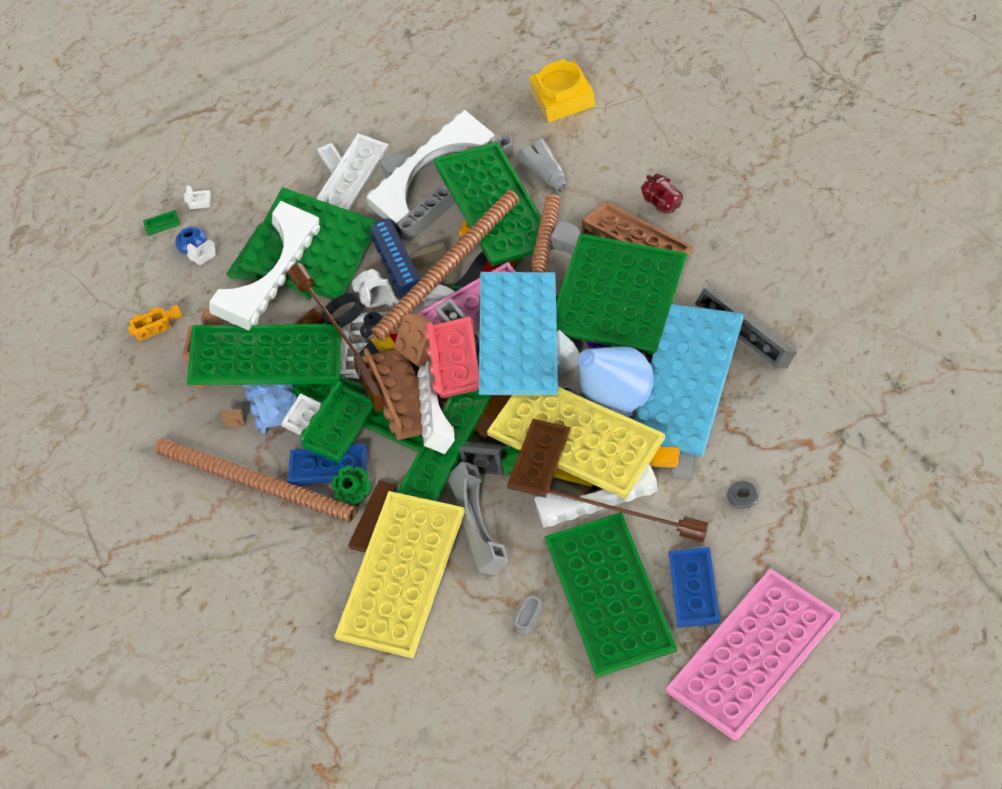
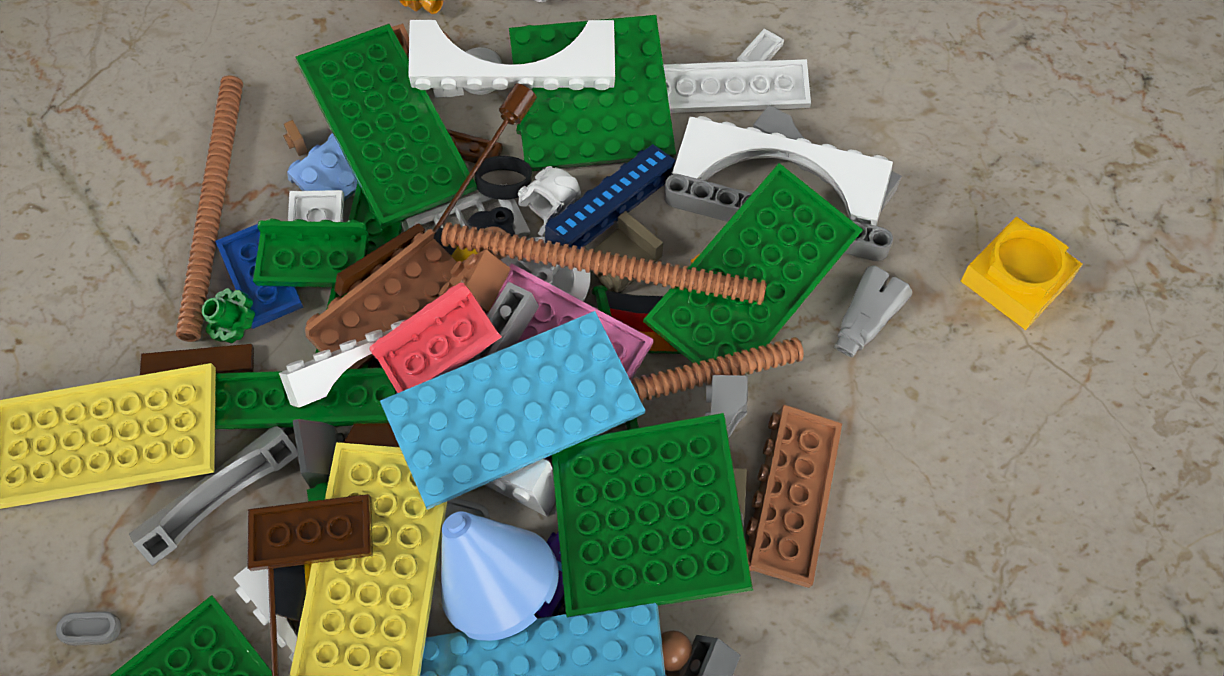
camera: 55 degrees right, 10 degrees up
(661, 193) = (888, 495): dark red helmet -> none

